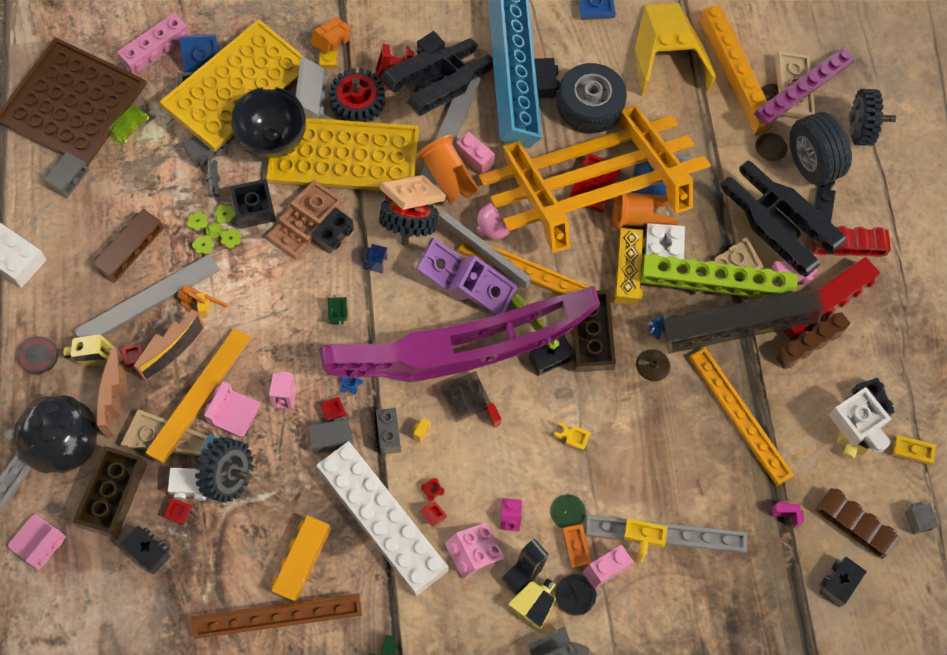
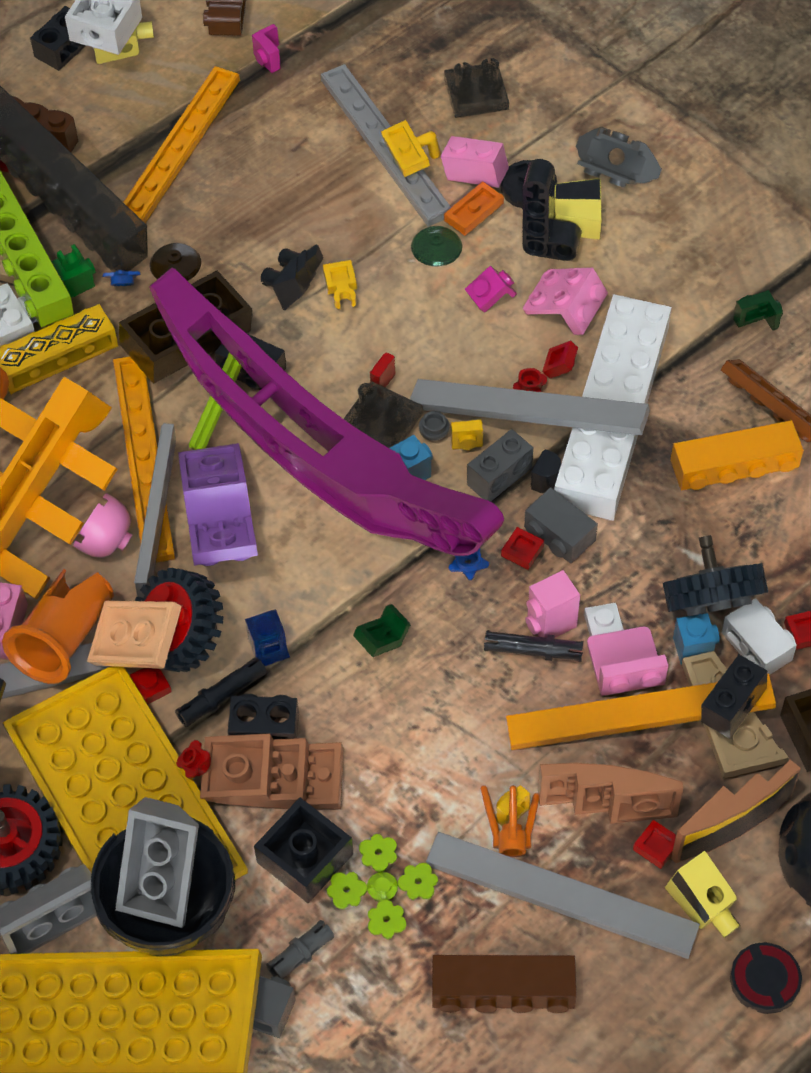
camera: 120 degrees left, 10 degrees down
(159, 429) = (734, 696): none -> black brick
(263, 419) = (603, 619): none -> white plate
(277, 117) = (157, 862): none -> light grey slope
(286, 366) = (534, 646): none -> black pin
(332, 186) = (194, 760): none -> red plate
(364, 223) = (211, 698): none -> black pin
(368, 452) = (545, 471): none -> black brick
(406, 465) = (532, 406): none -> light grey tile
(424, 388) = (415, 456): none -> dark azure brick
(441, 420) = (434, 426): none -> dark grey plate
(590, 411) = (296, 275): none -> black connector
(671, 616) = (476, 88): none -> clear smoke plate
(675, 301) = (75, 271): none -> green brick

